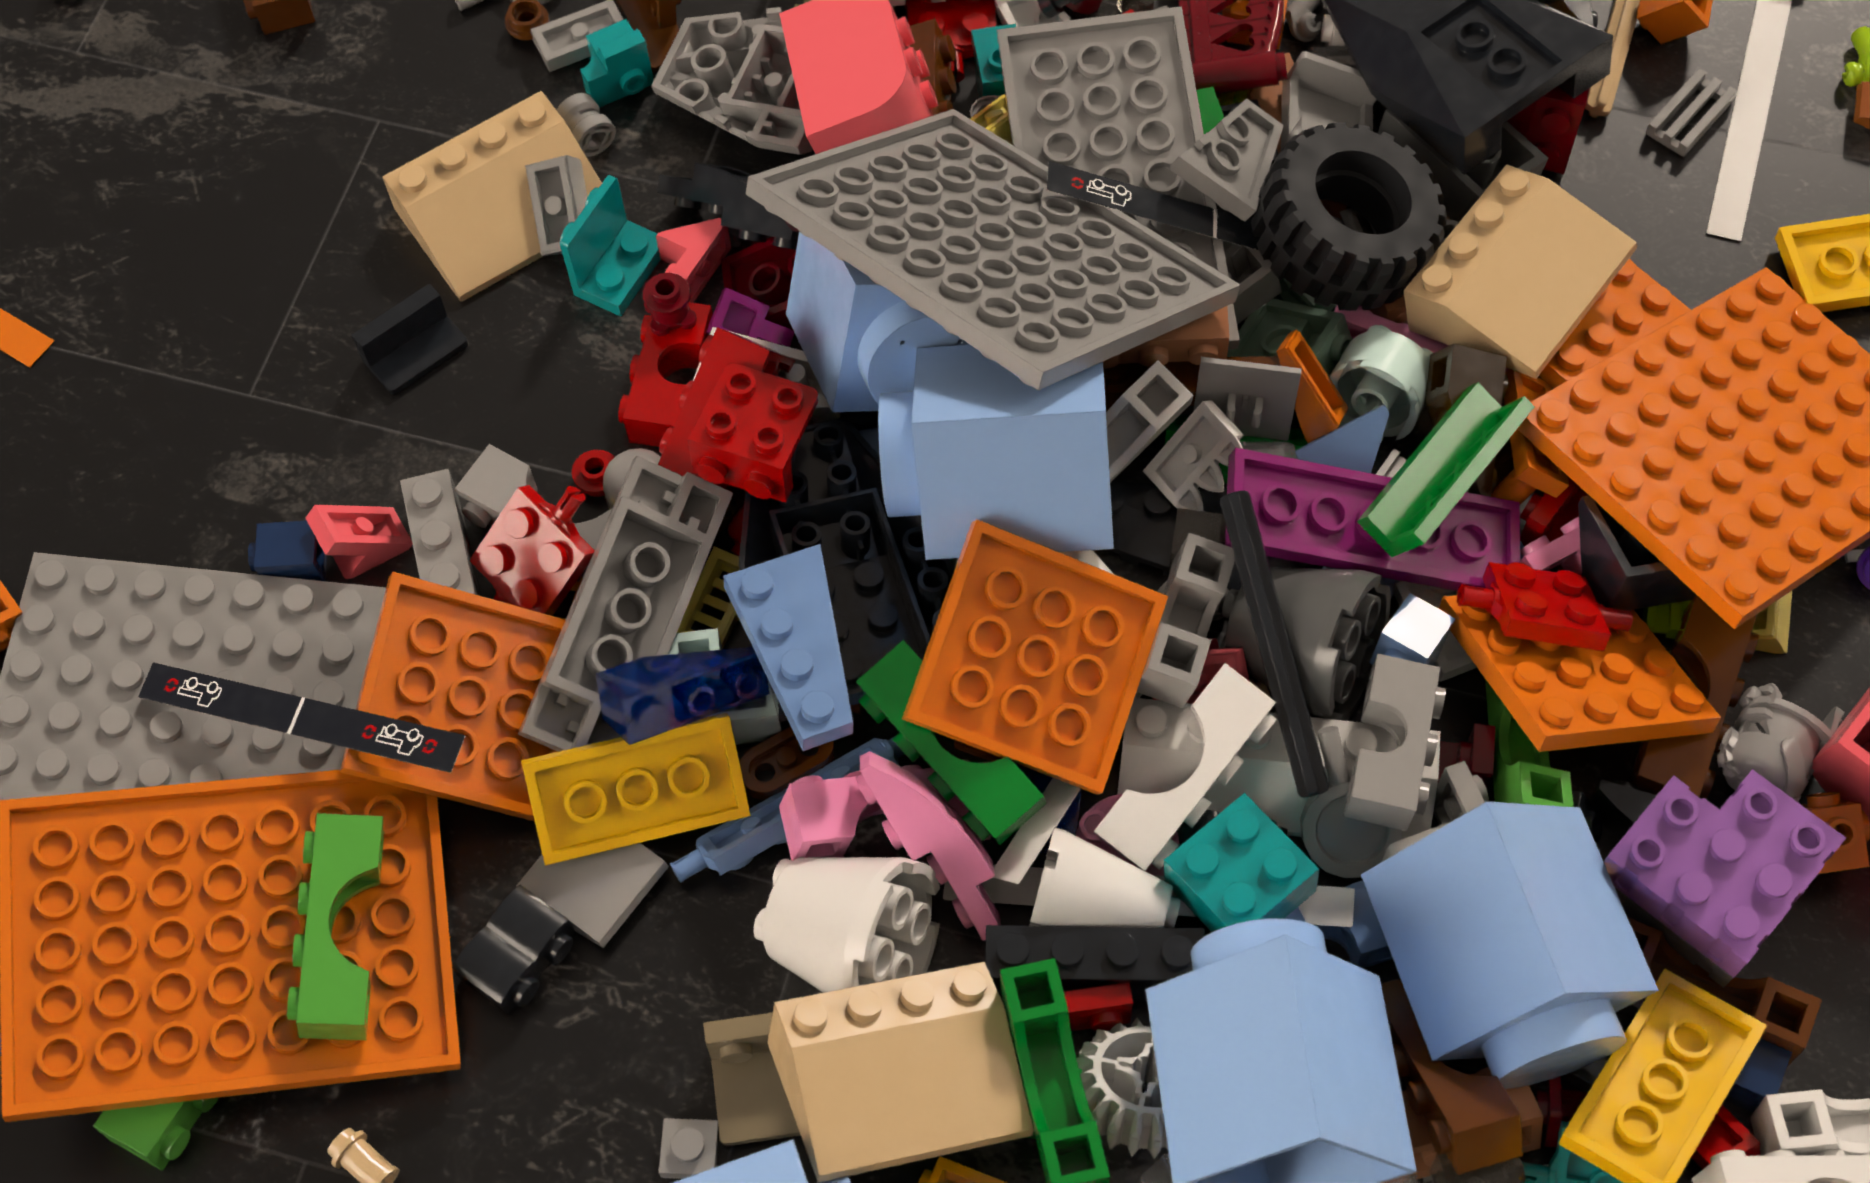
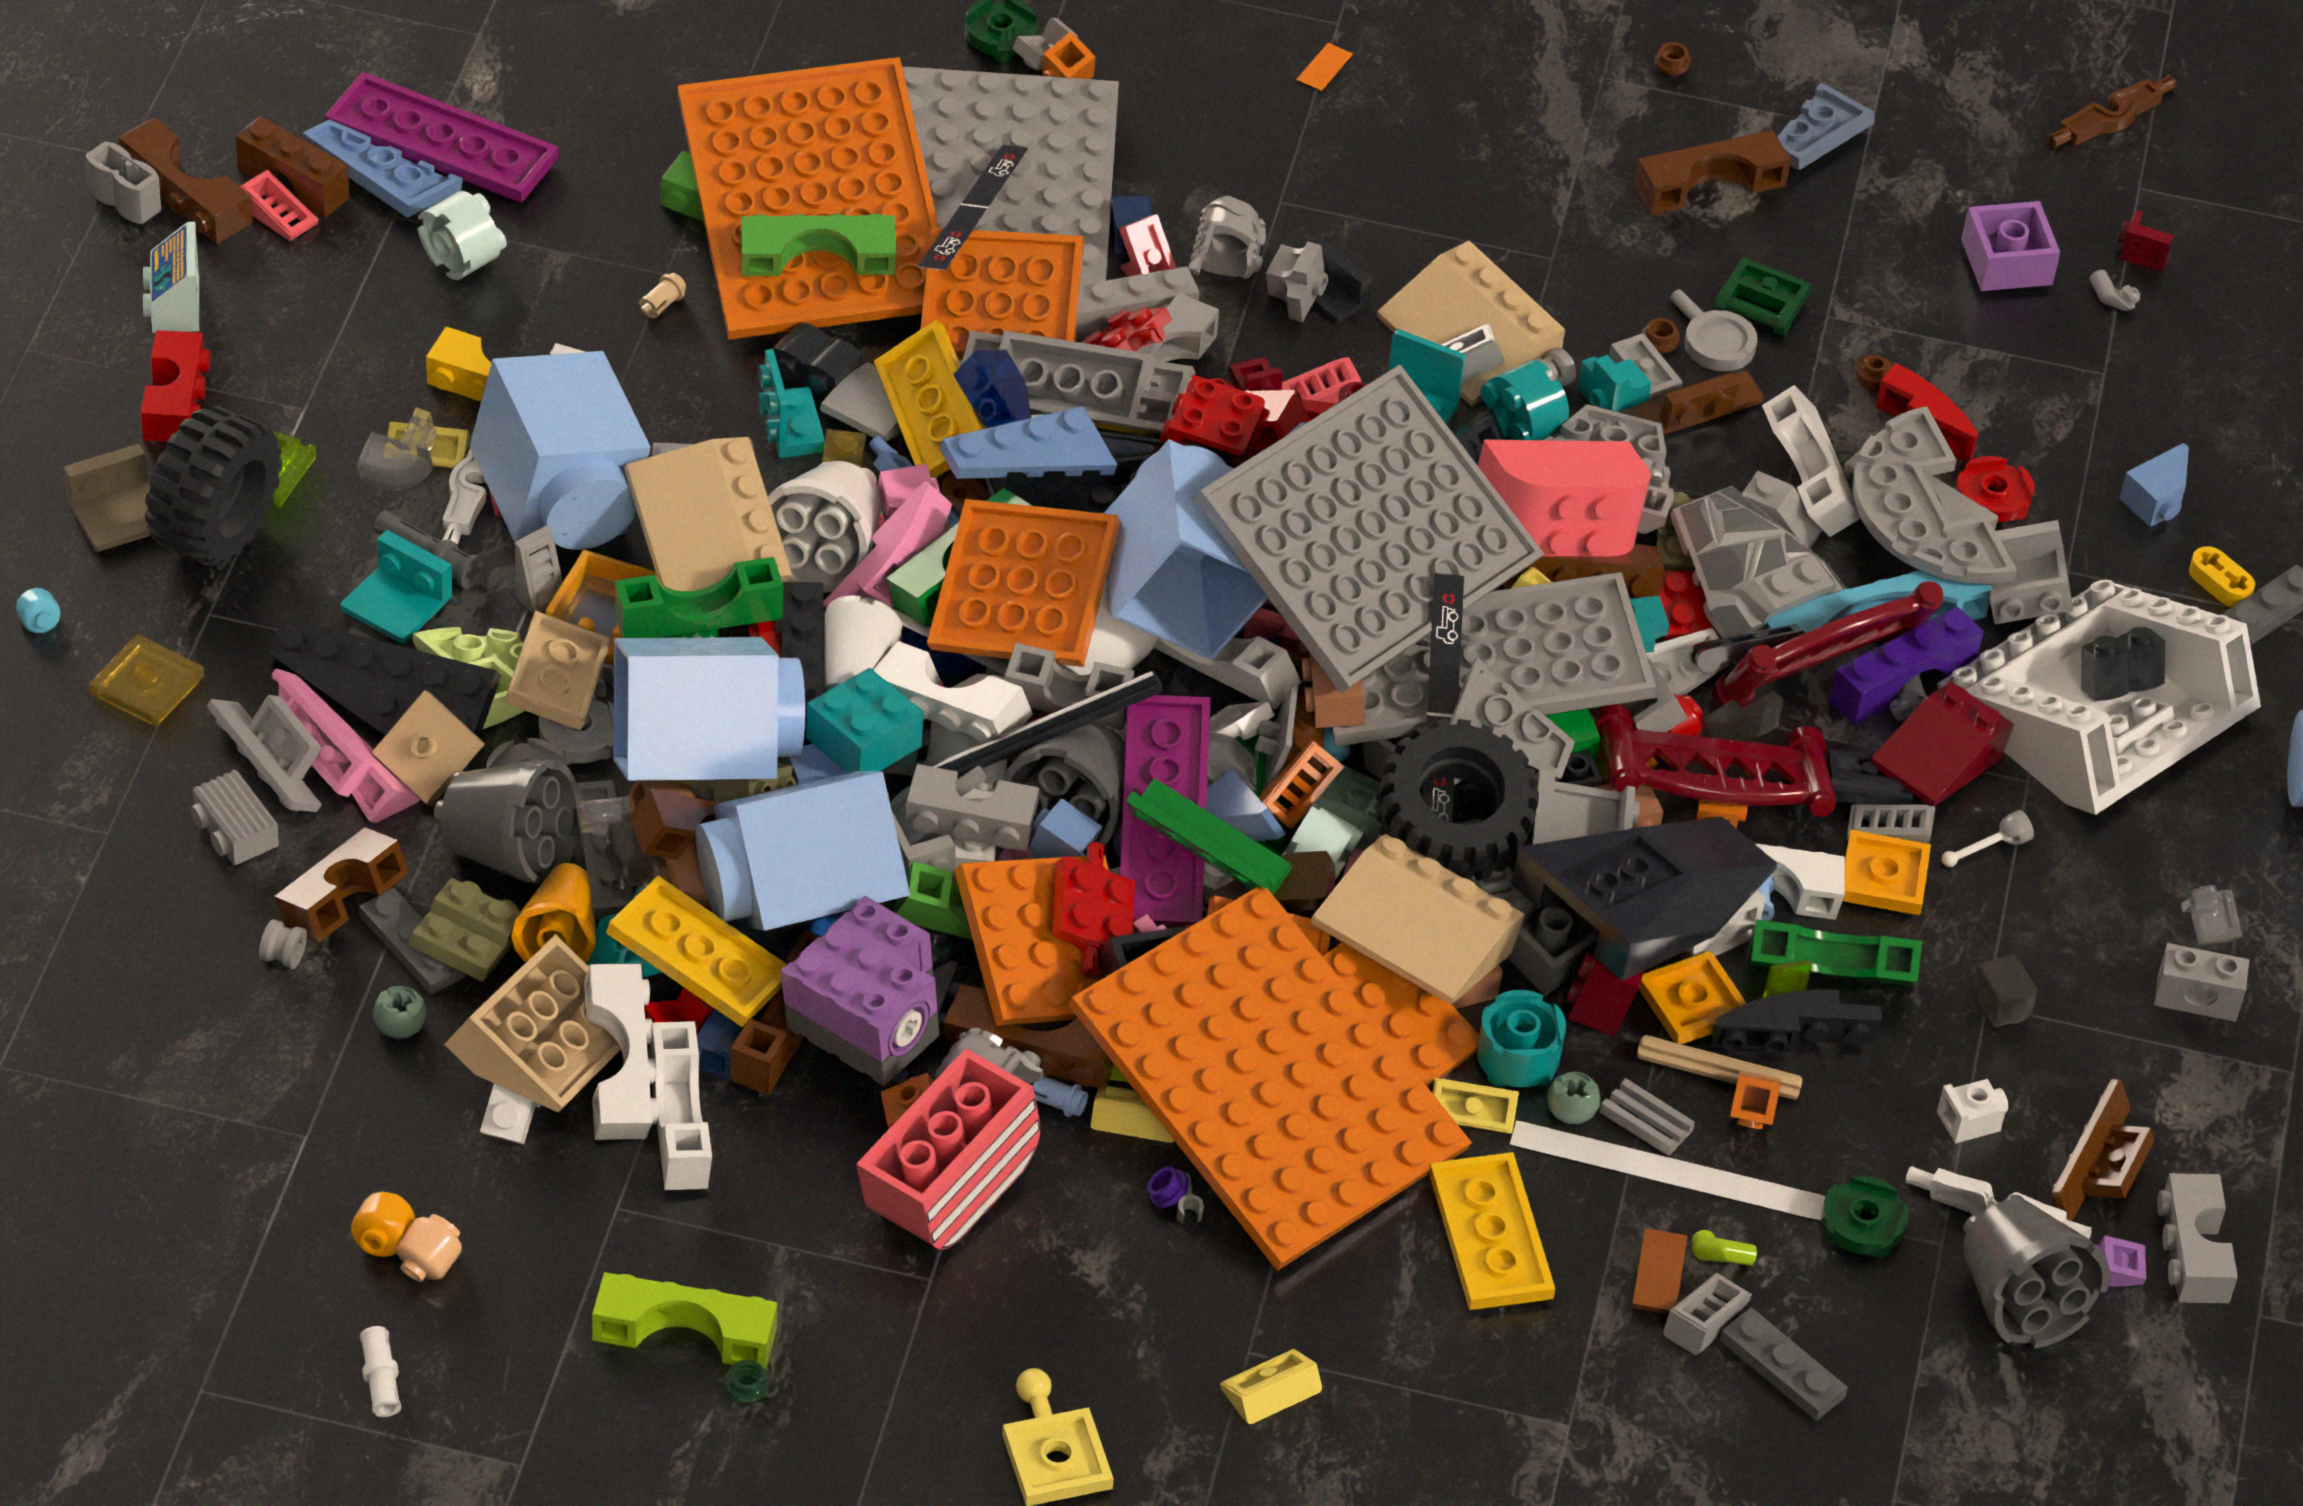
camera: 80 degrees right, 15 degrees down
(340, 442) = (1226, 232): none -> light grey helmet
(415, 368) = (1297, 278): none -> light grey brick
(583, 333) = (1331, 374): none -> coral slope
(583, 425) = (1255, 376): none -> dark red bracket
(615, 986) = (790, 413): none -> teal bracket
(655, 138) = (1526, 402): none -> teal brick
(673, 919) = (844, 447): none -> clear yellow plate
(1633, 198) = (1520, 1039): none -> teal brick
(1687, 170) = (1573, 1098): none -> sand green piece
(1696, 262) = (1477, 1105): none -> light yellow slope
(1763, 668) = (1061, 1096): none -> light blue pin

